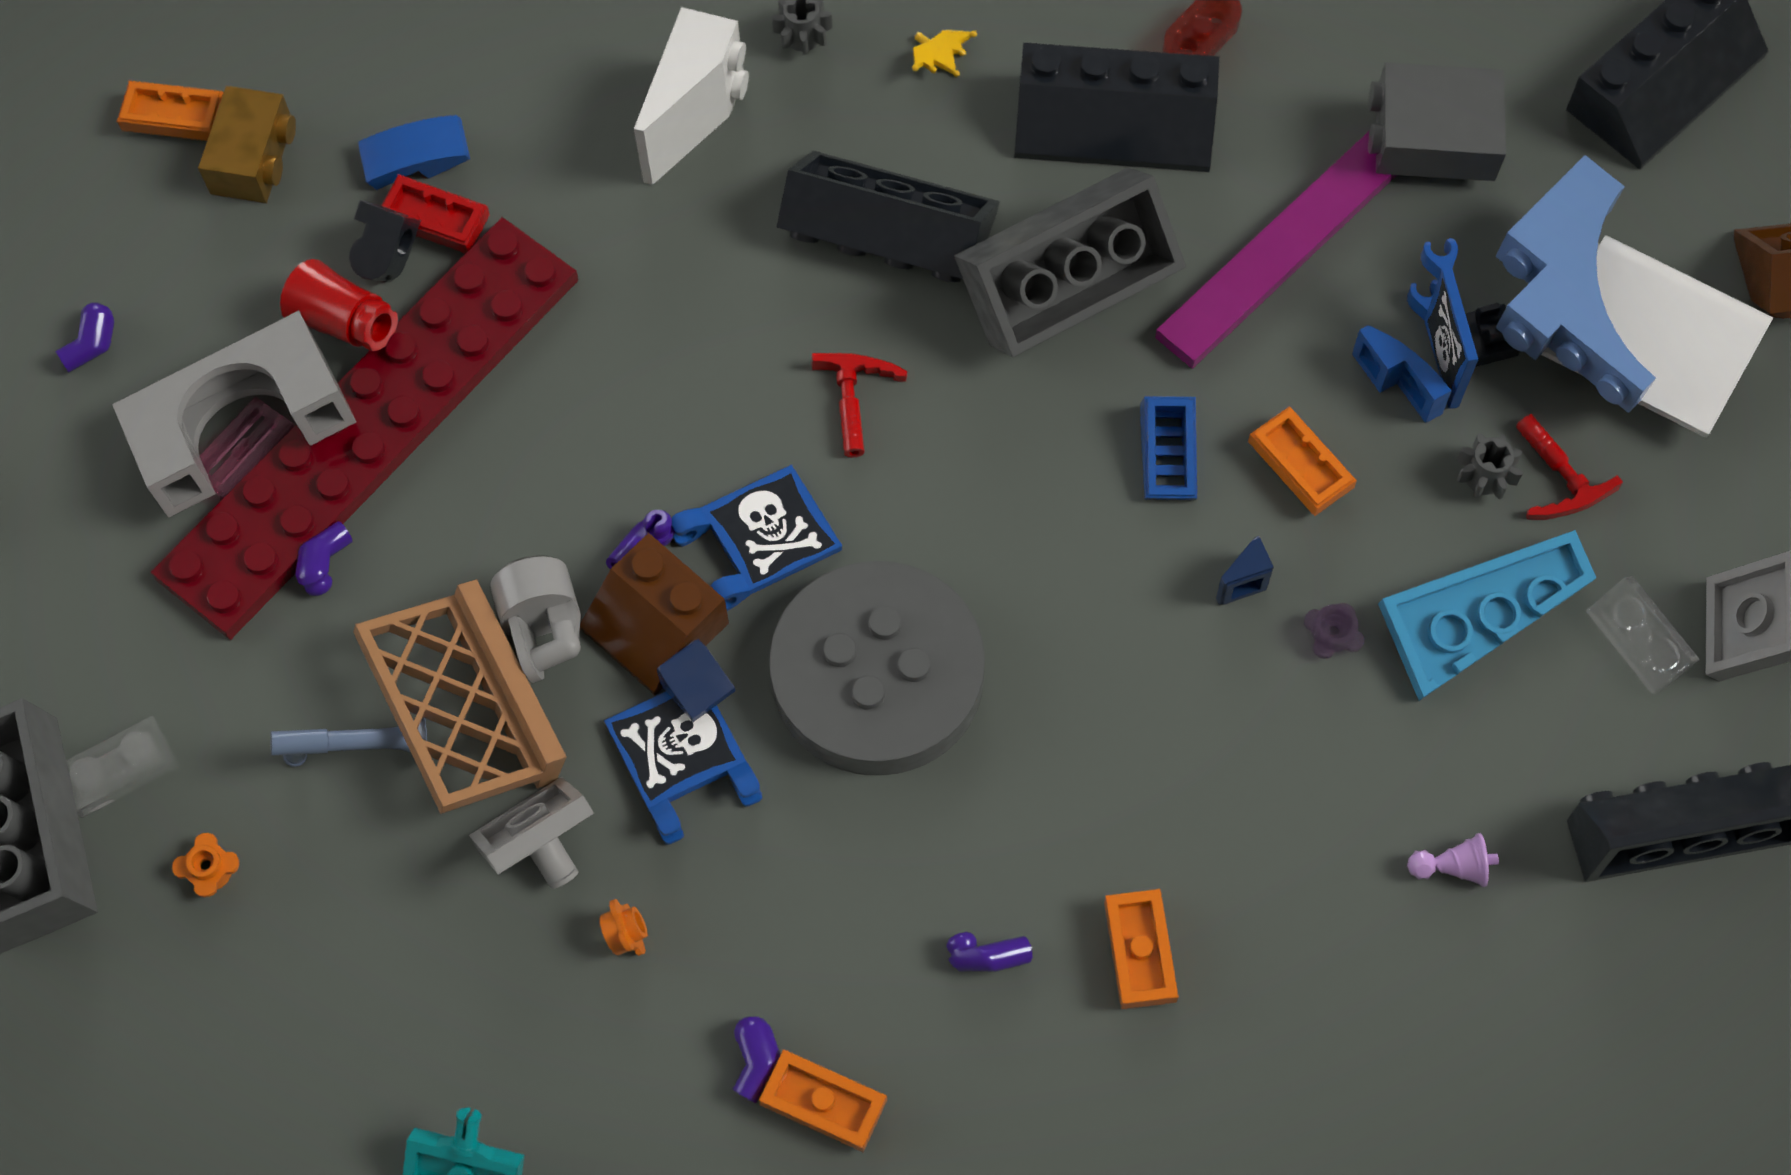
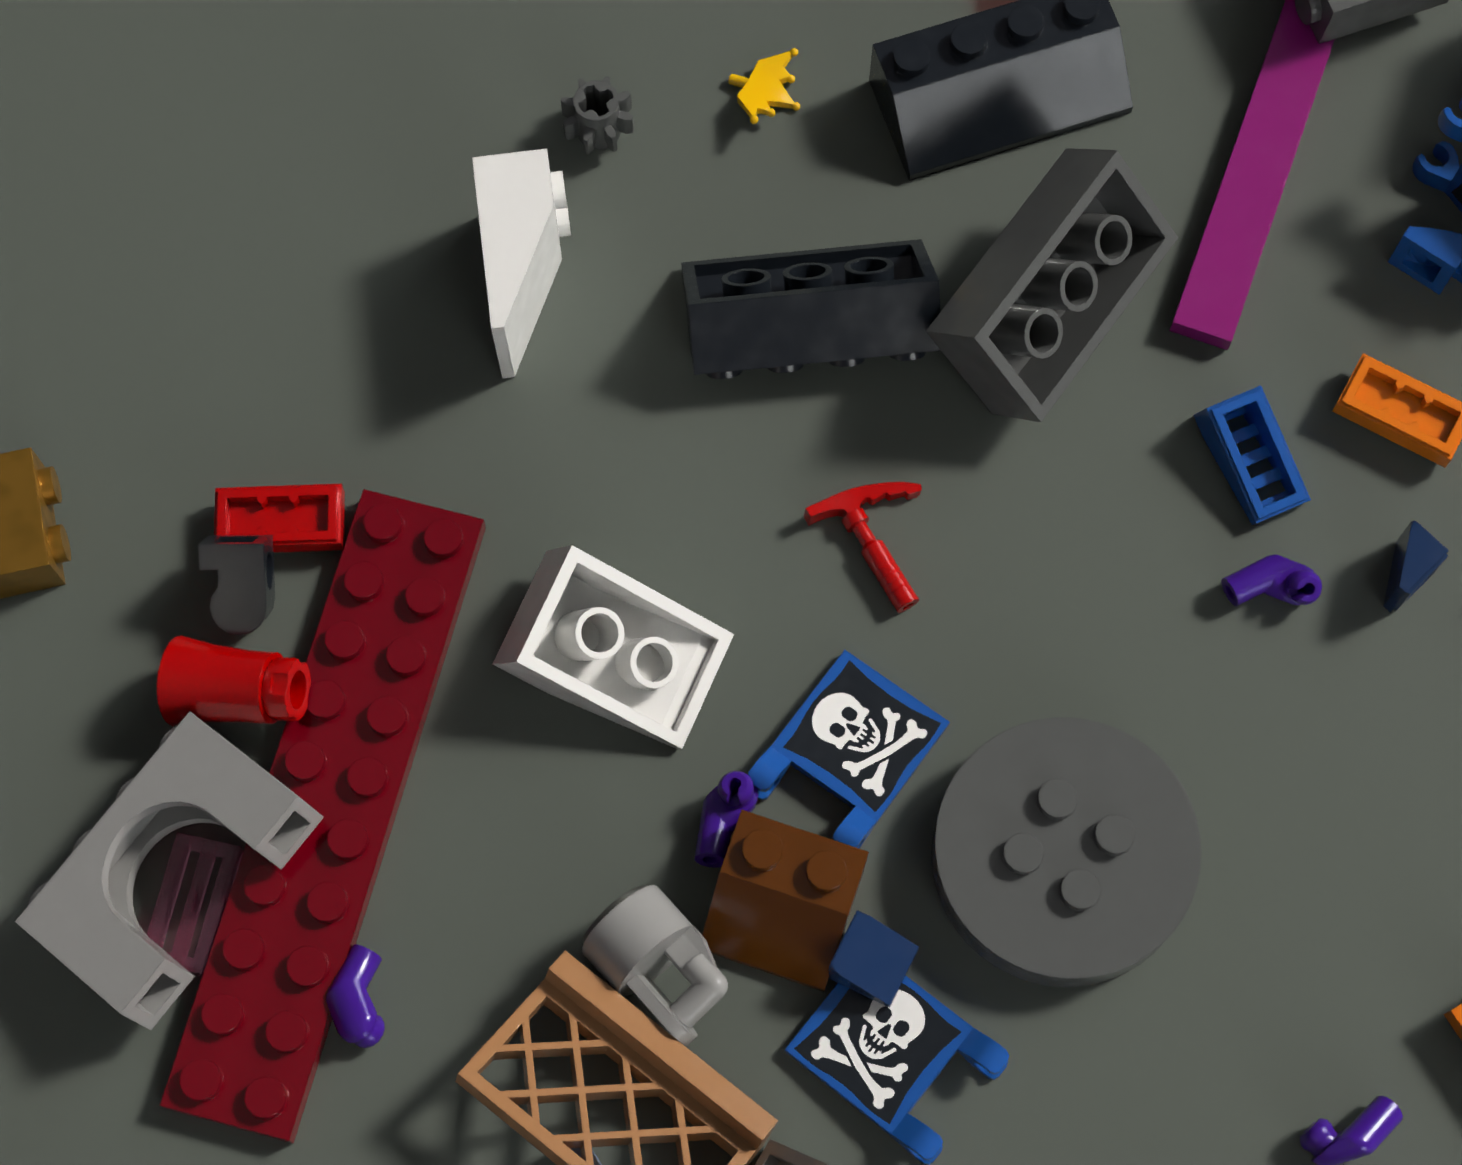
camera: 25 degrees left, 5 degrees up
(419, 146) = (215, 447): blue slope -> none
(623, 394) = (613, 646): none -> white slope
(1139, 541) = (1276, 578): none -> dark purple arm

